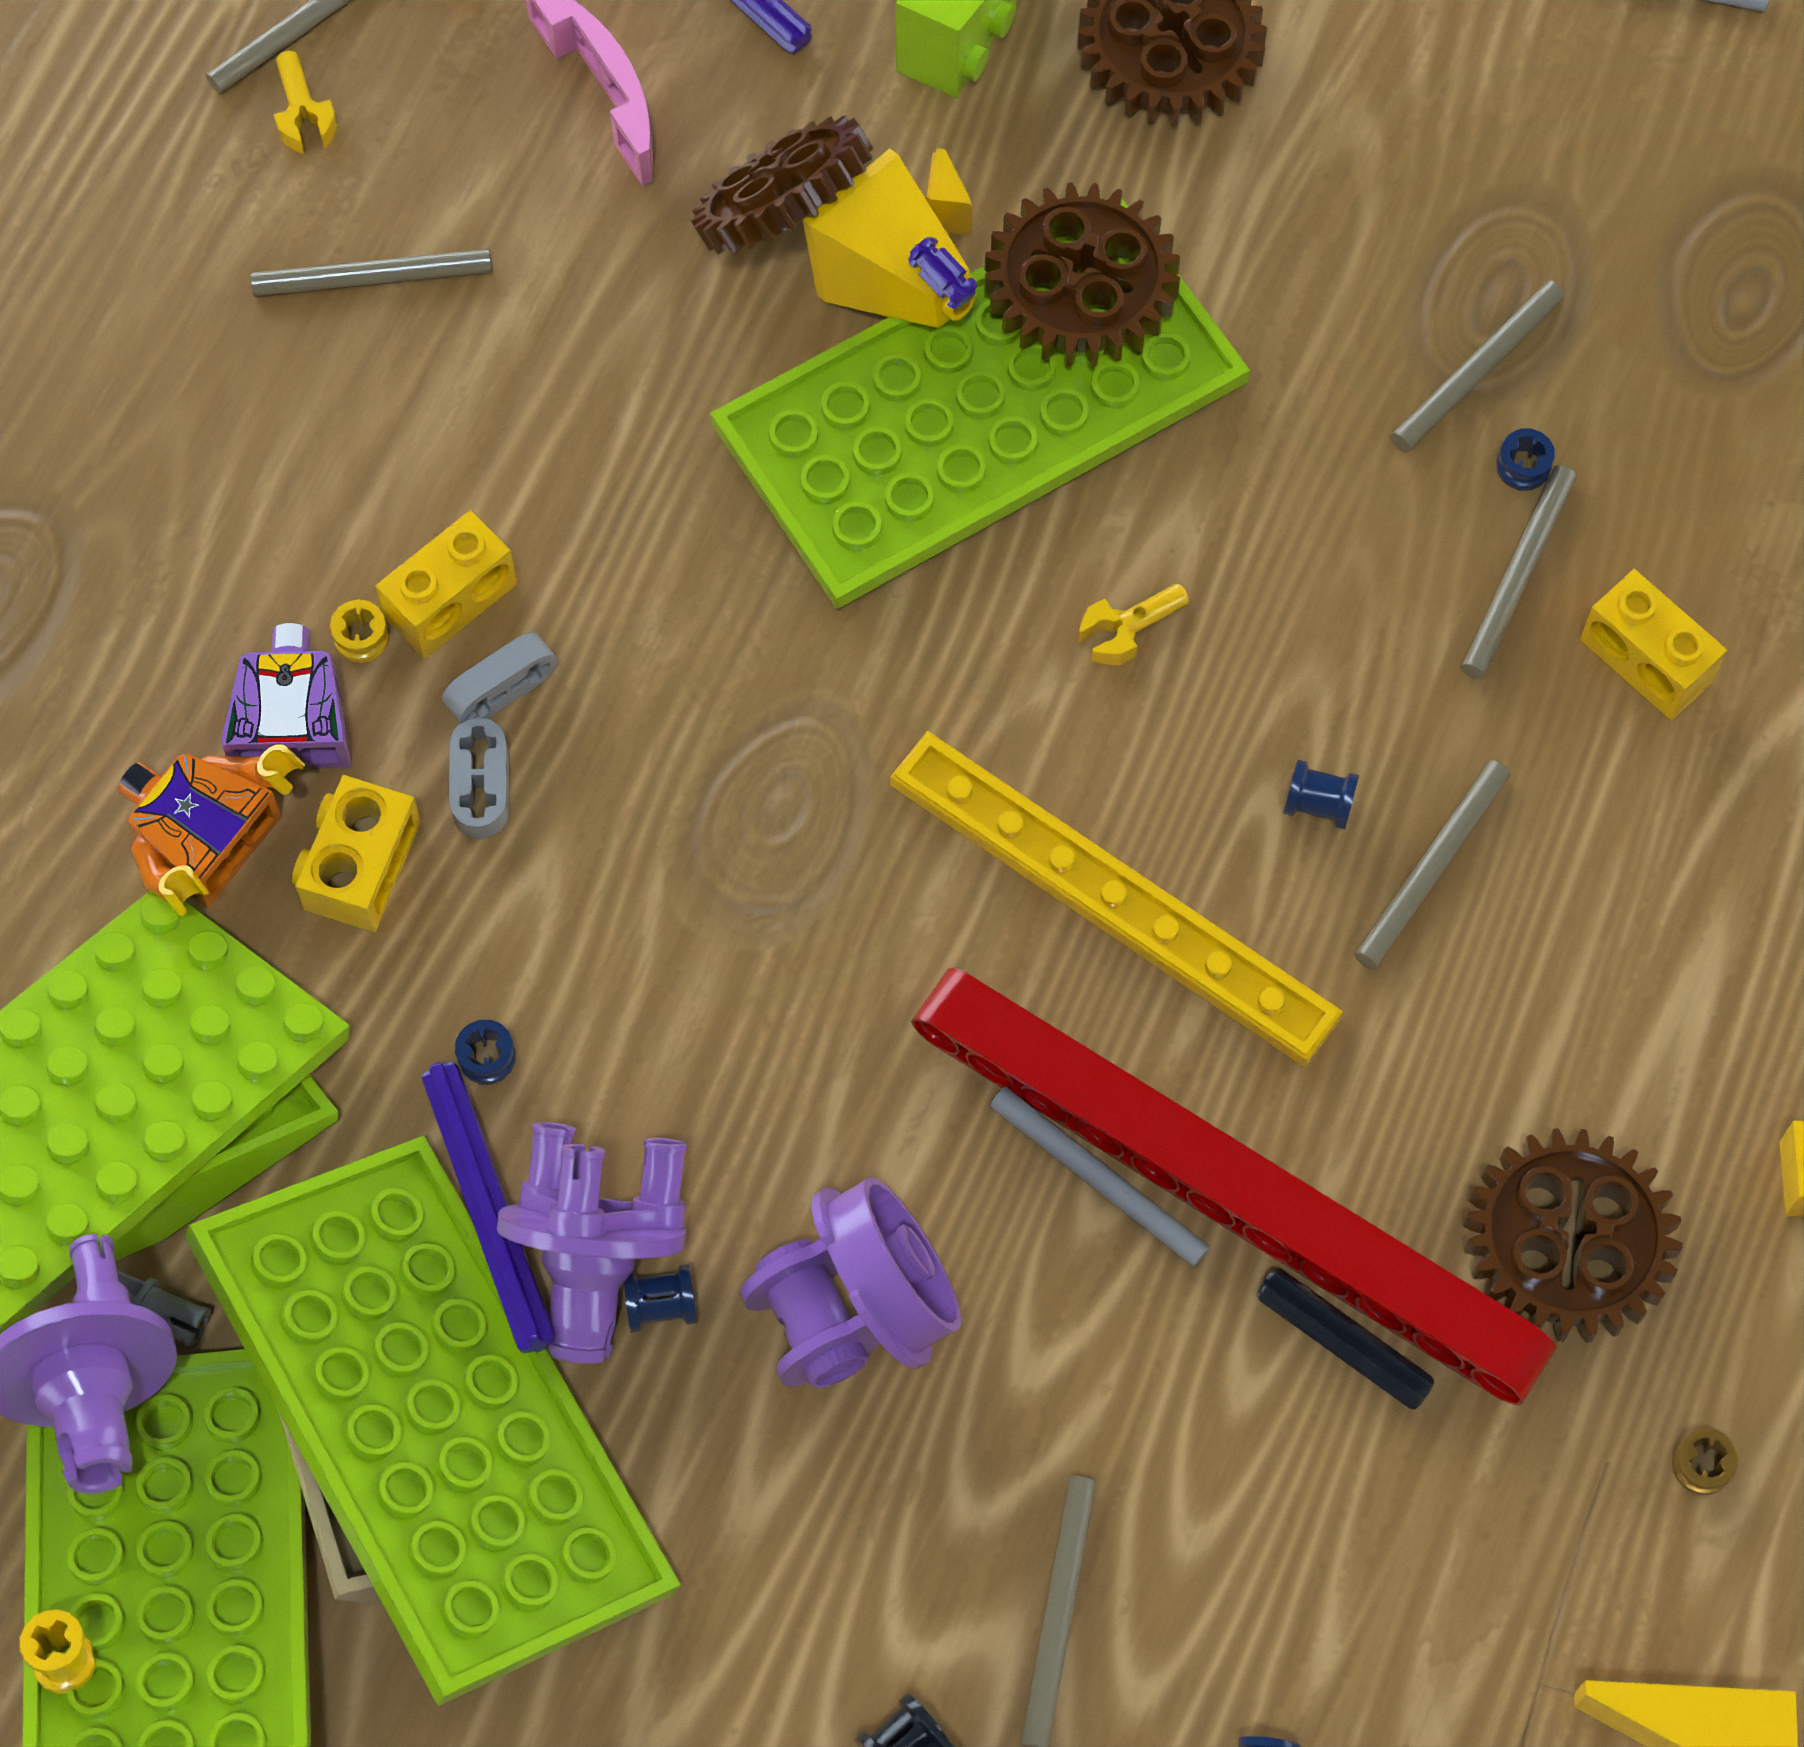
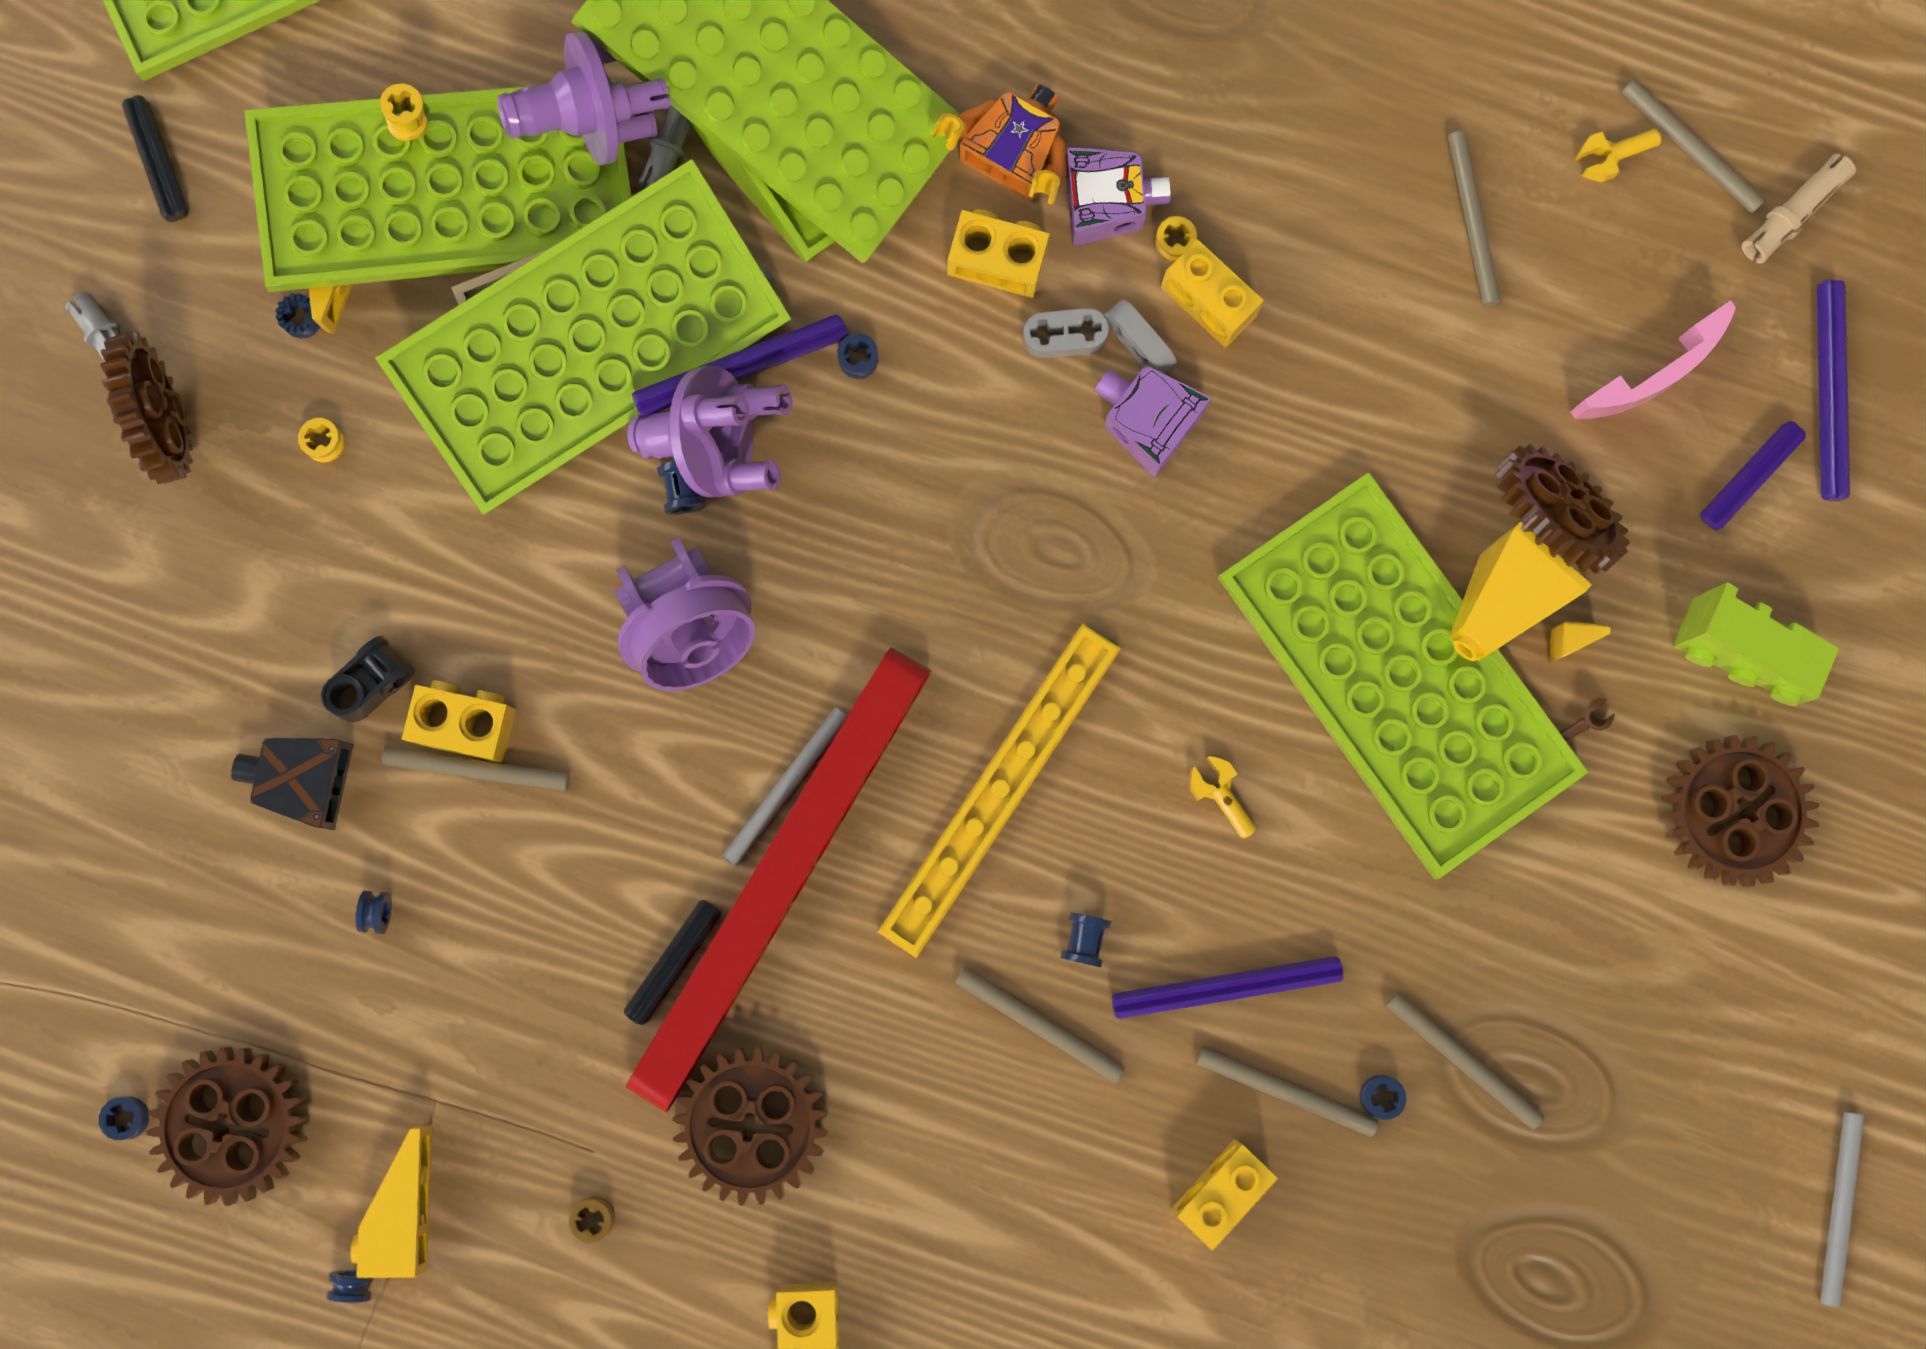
camera: 85 degrees right, 15 degrees up
(609, 671) = (1151, 414): none -> medium lavender torso
(942, 272) = (1481, 630): dark purple piece -> none
(1005, 1628) = (457, 731): none -> yellow brick
(1055, 176) = (1588, 721): none -> reddish brown hand
(1082, 274) = (1545, 760): reddish brown gear -> none
(1385, 633) = (1227, 987): none -> dark purple axle

